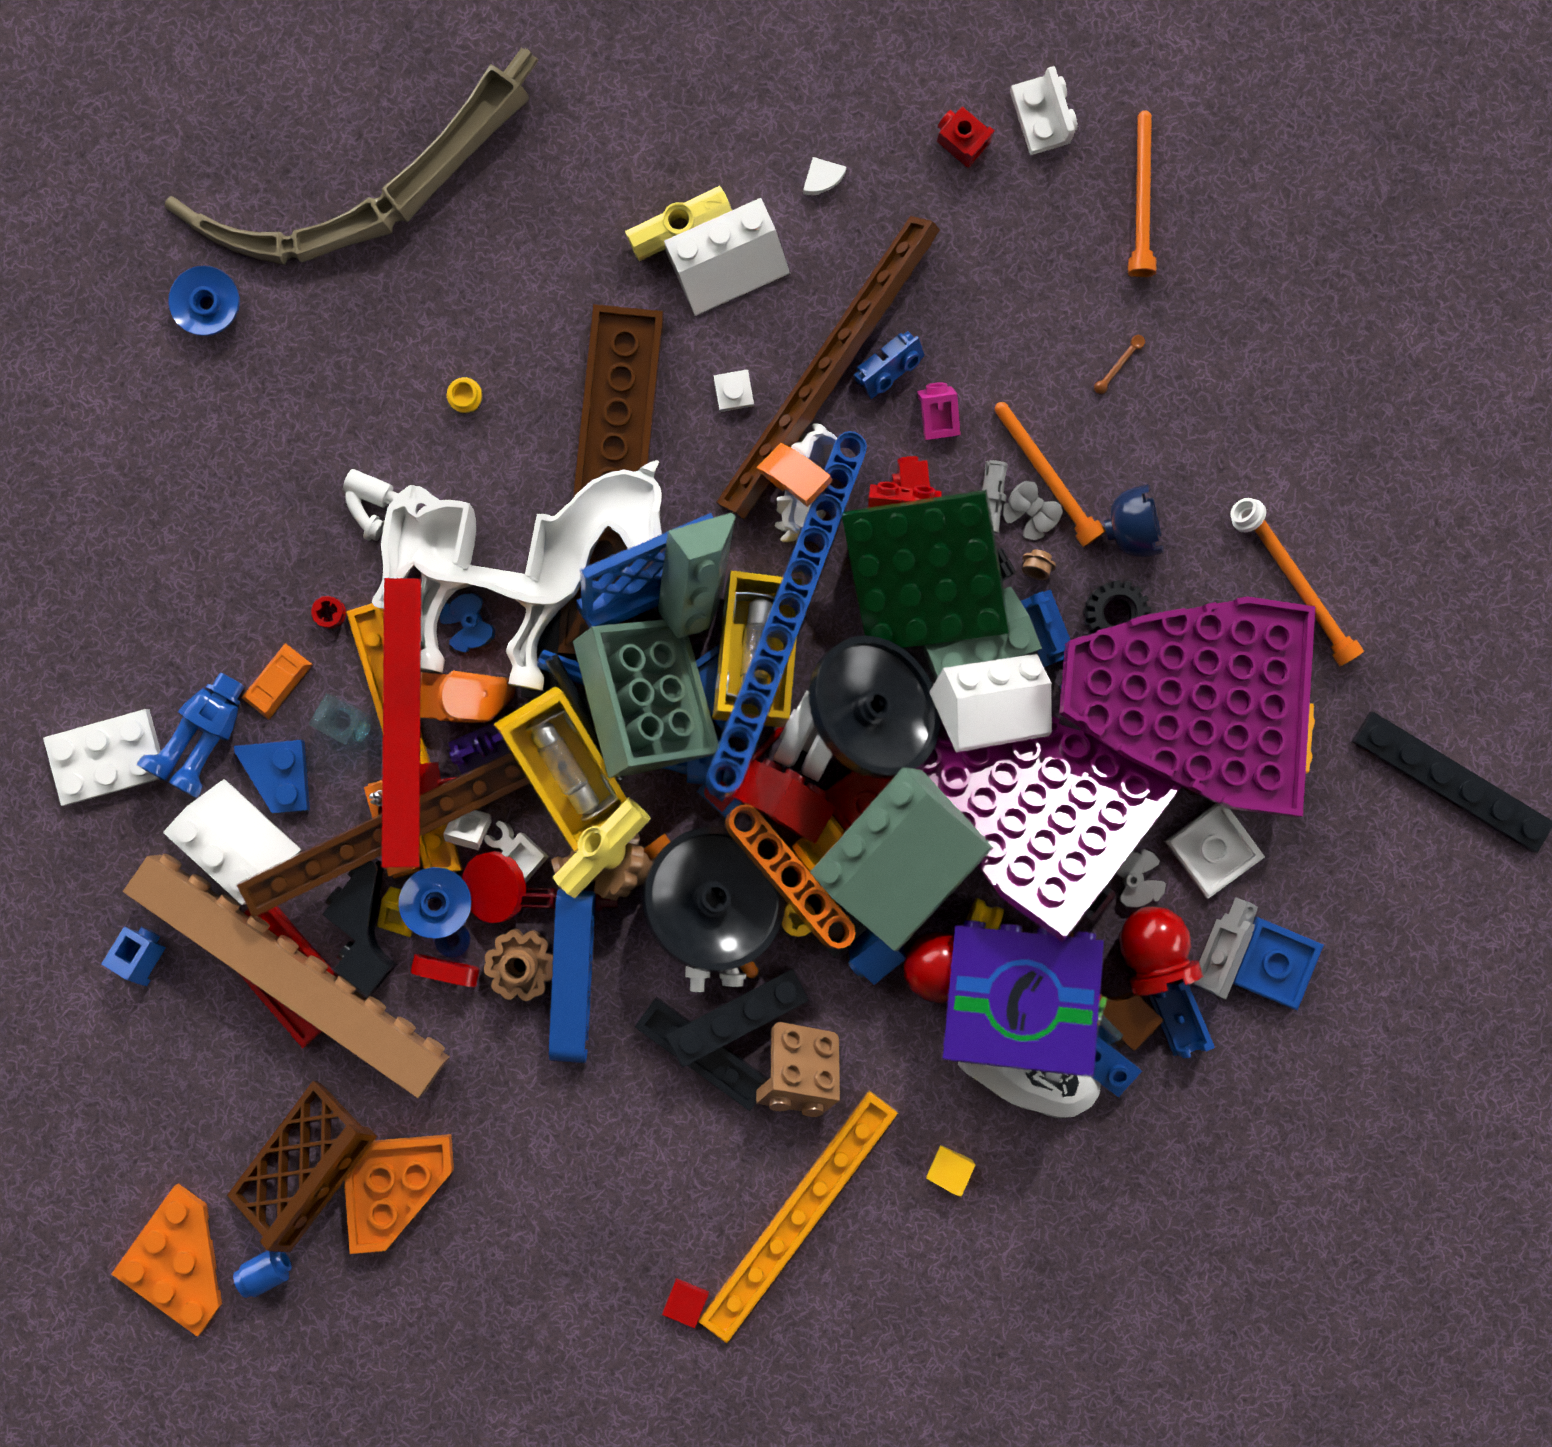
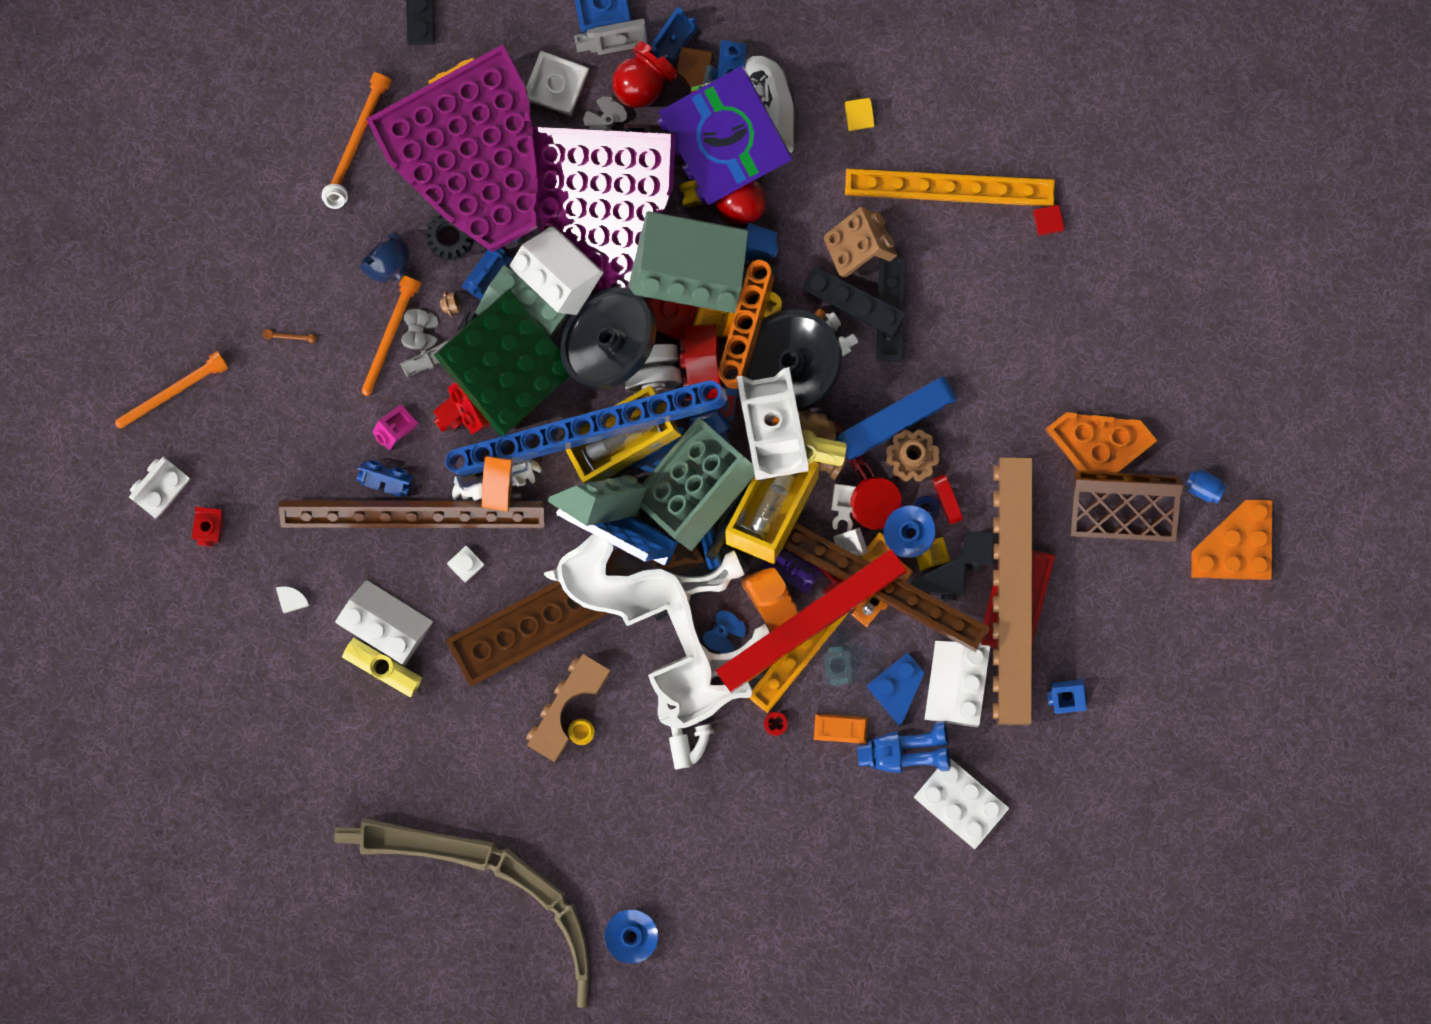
camera: 125 degrees left, 5 degrees down
(479, 357) = (585, 678): none -> medium nougat arch
(612, 815) = (776, 448): none -> white piece

